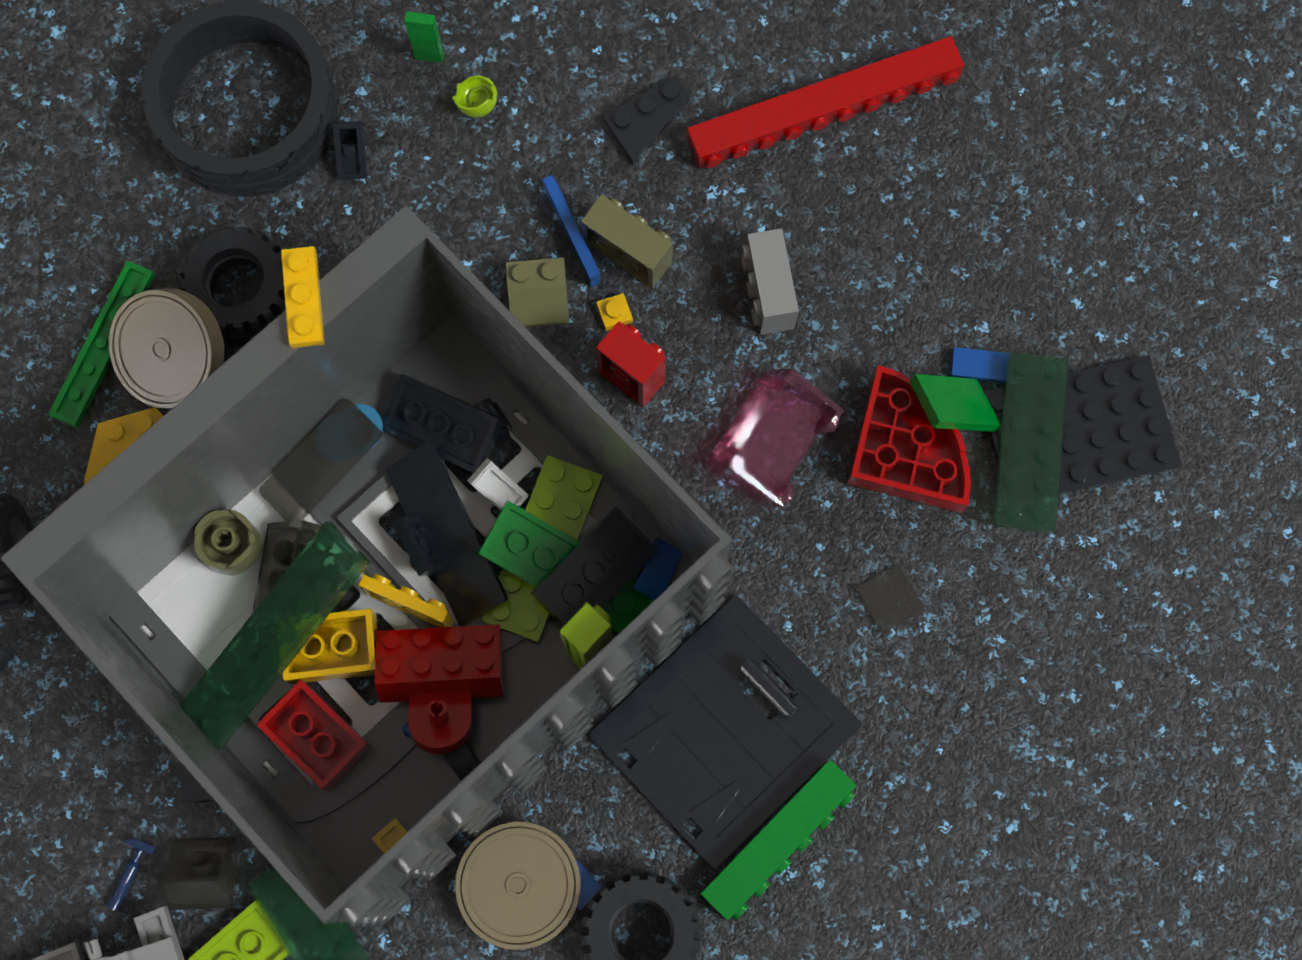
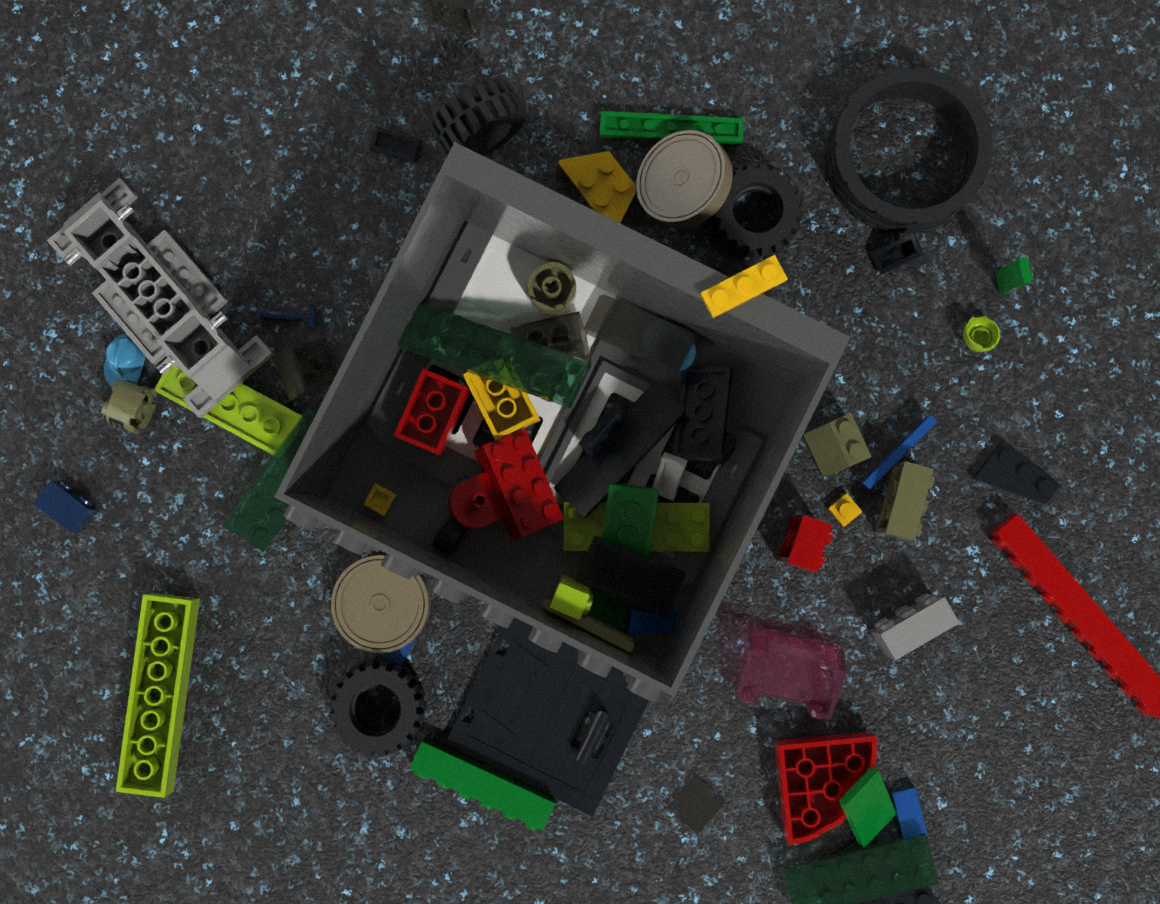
camera: 70 degrees right, 10 degrees up
(406, 600) = (556, 442): yellow plate -> none

